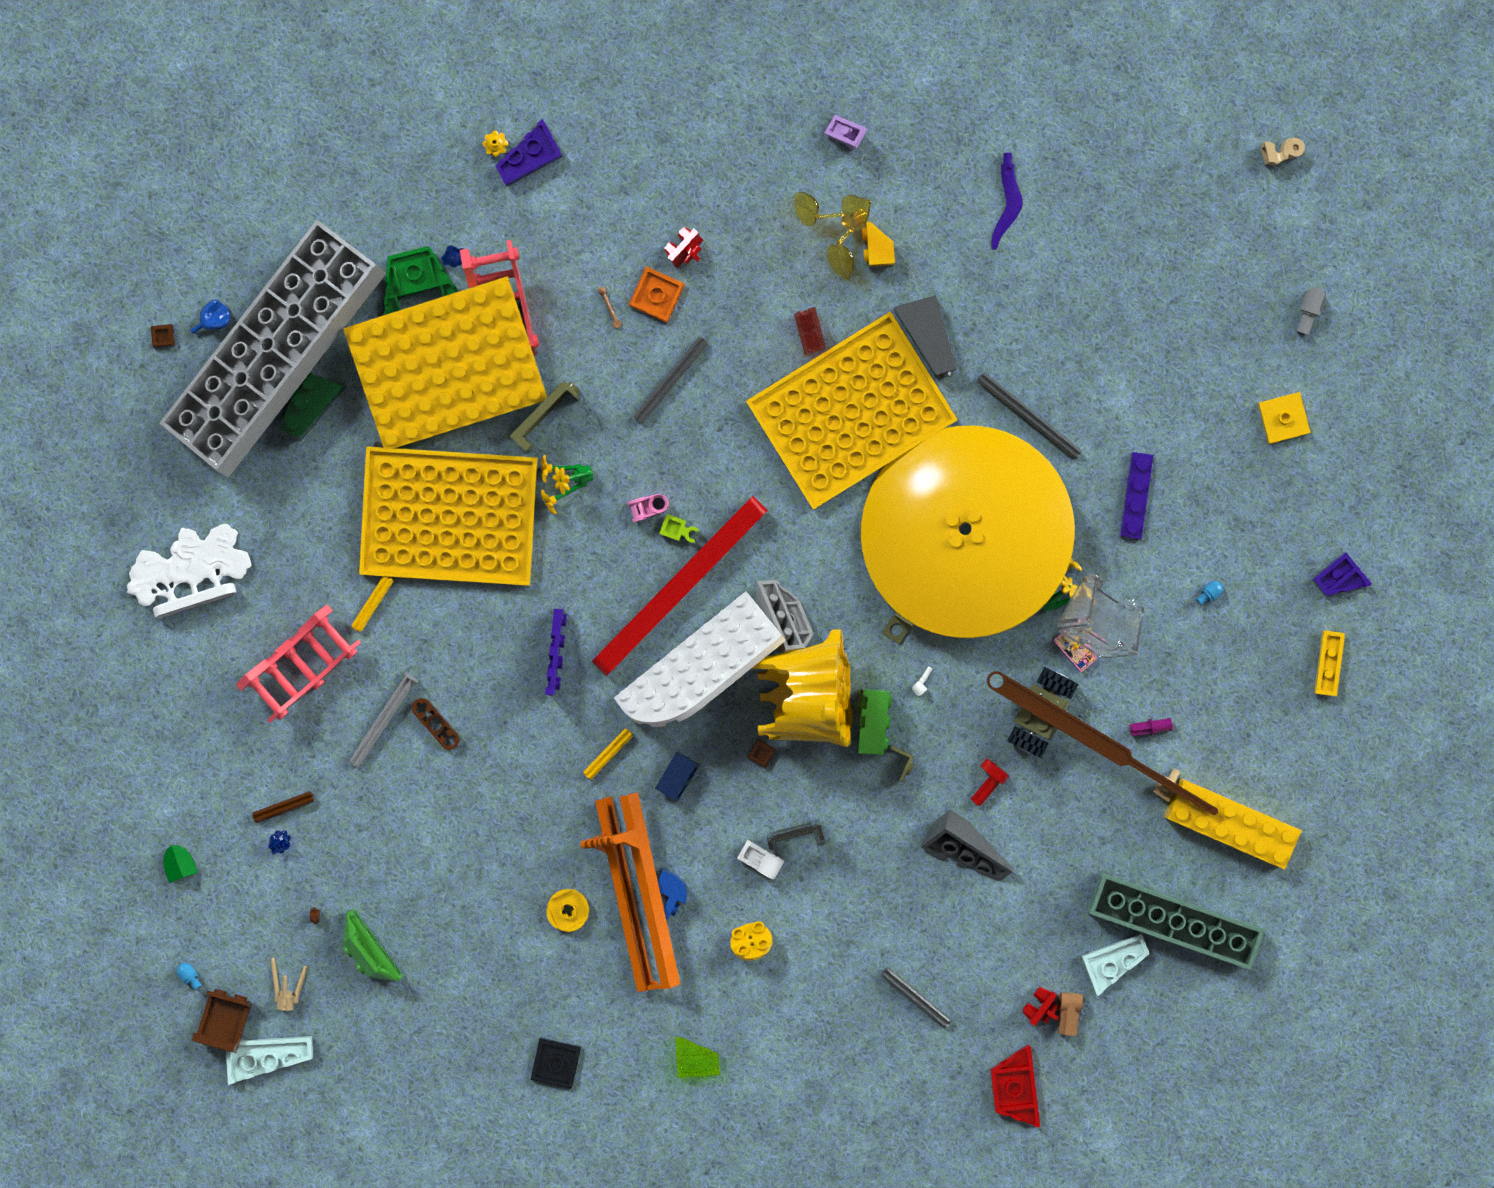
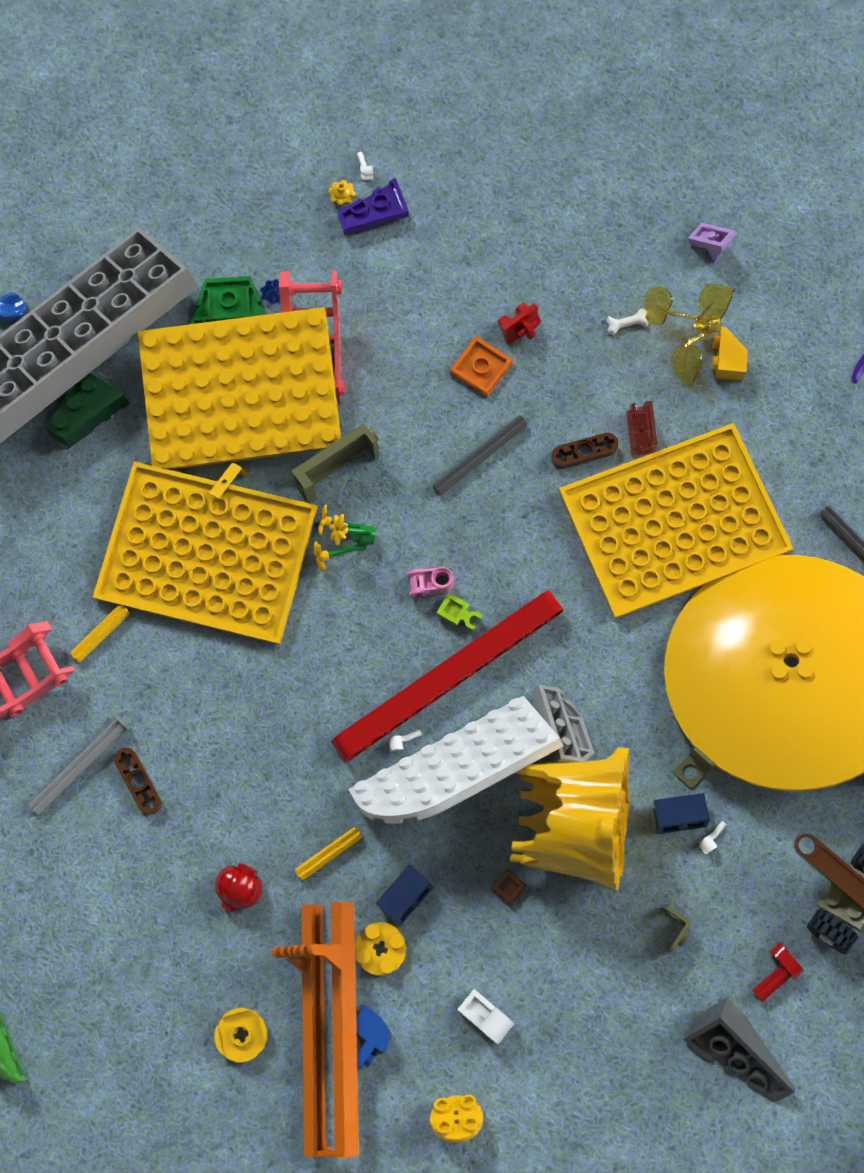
camera: 15 degrees right, 15 degrees down
(453, 444) = (229, 475): none -> yellow piece
(514, 117) = (366, 171): none -> white hand
(539, 795) = (238, 887): none -> red plant
(556, 661) = (290, 723): dark purple wing -> none
(602, 291) = (432, 388): medium nougat hinge -> none
(646, 652) = (396, 744): none -> white hand
(675, 814) = (373, 935): none -> yellow plate
(771, 231) = (639, 318): none -> white piece
(779, 357) = (602, 451): none -> reddish brown beam
(796, 831) = (559, 988): clear smoke panel -> none
(873, 721) = (649, 871): bright green wedge -> none
(893, 667) = (681, 813): none -> dark blue hinge
(927, 331) = (772, 453): dark grey slope -> none

